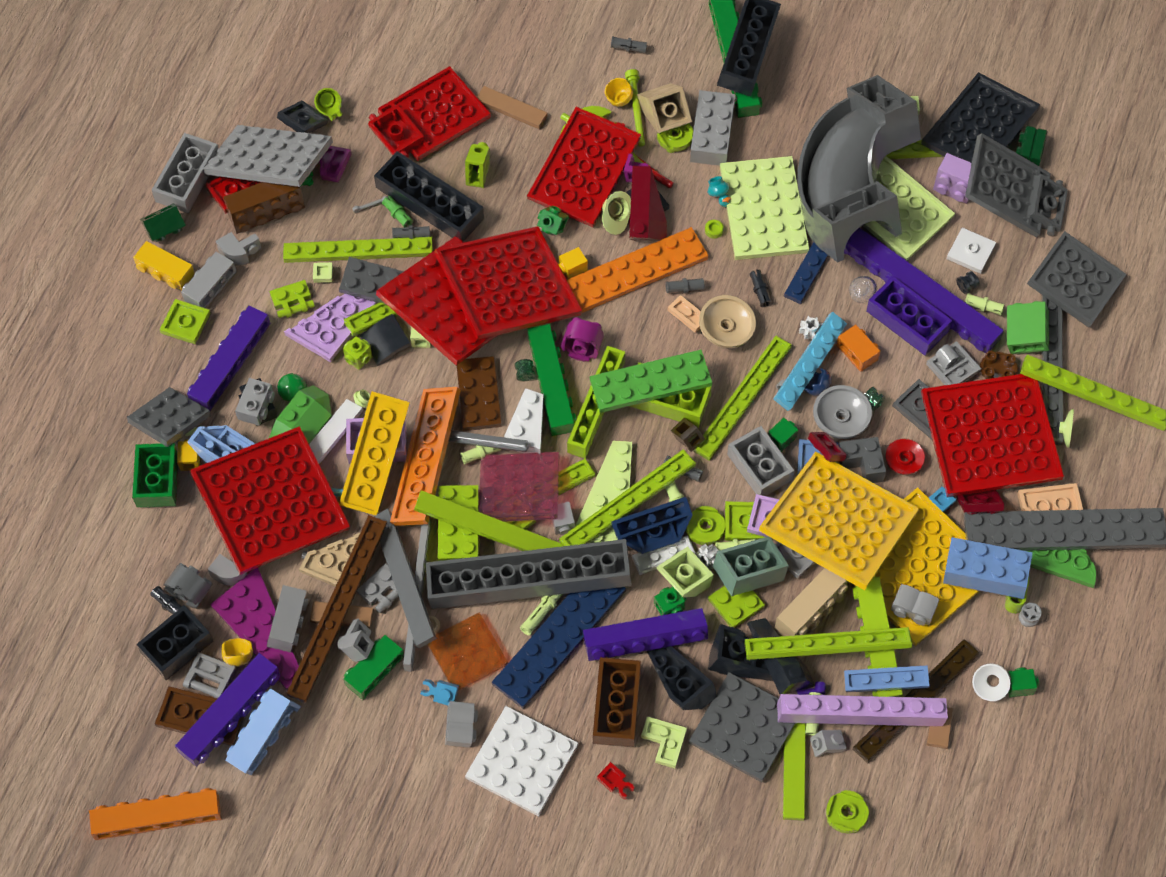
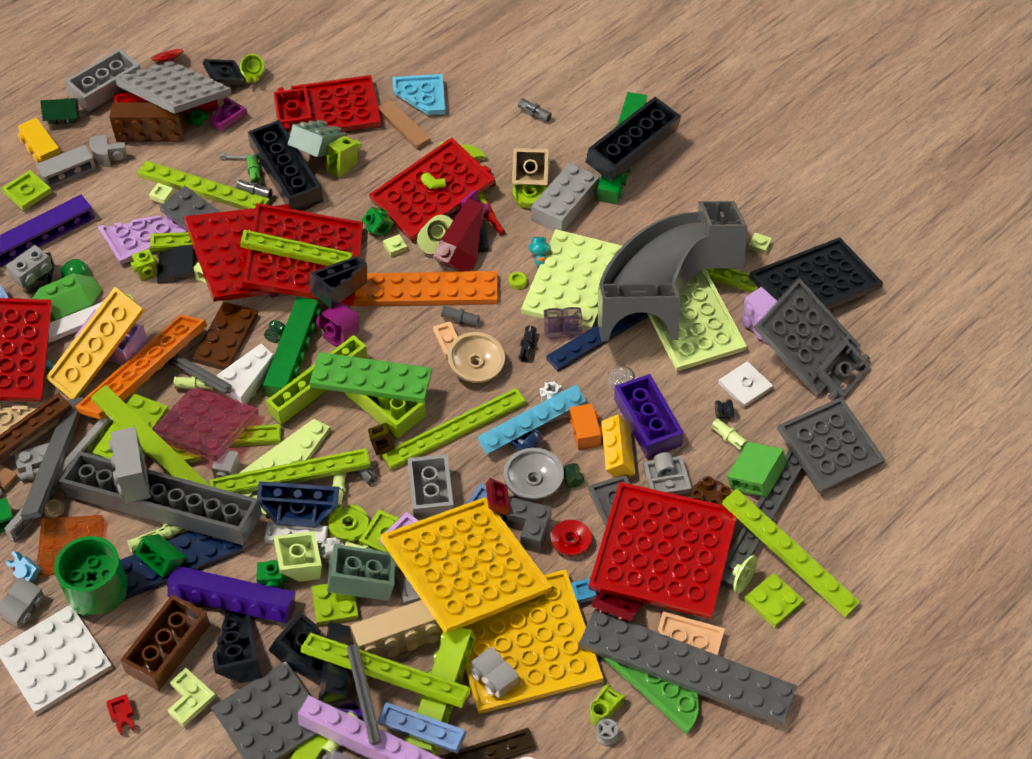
camera: 25 degrees right, 10 degrees down
(230, 120) = (168, 55): none -> red dish
(290, 295) = (123, 205): lime plate -> none
(447, 156) = (314, 136): none -> sand green brick
(494, 557) = (129, 465): none -> light grey brick
(502, 282) = (292, 248): none -> lime tile
(509, 65) = (422, 92): none -> medium azure plate
(518, 657) = (91, 575): none -> green brick
(561, 627) = (159, 554): none -> green brick
(564, 298) = (338, 280): none -> black wedge
(573, 263) = (375, 260): yellow brick -> none
(580, 238) = (395, 245): none -> yellowish green plate
(583, 161) = (432, 183): none -> lime arm
(618, 92) = (500, 142): yellow hair -> none
(632, 77) = (520, 136): lime piece -> none
(783, 255) = (562, 322): none -> brick
(783, 433) = (468, 473): green brick -> none
(828, 672) = (364, 695): none -> dark grey axle
(886, 263) = (697, 433): dark purple brick -> none
(899, 356) = (618, 446): none -> yellow brick
(987, 568) = (584, 667): medium blue brick -> none
(1032, 144) = (856, 315): dark green brick -> none
(1100, 440) = (774, 600): none -> lime plate

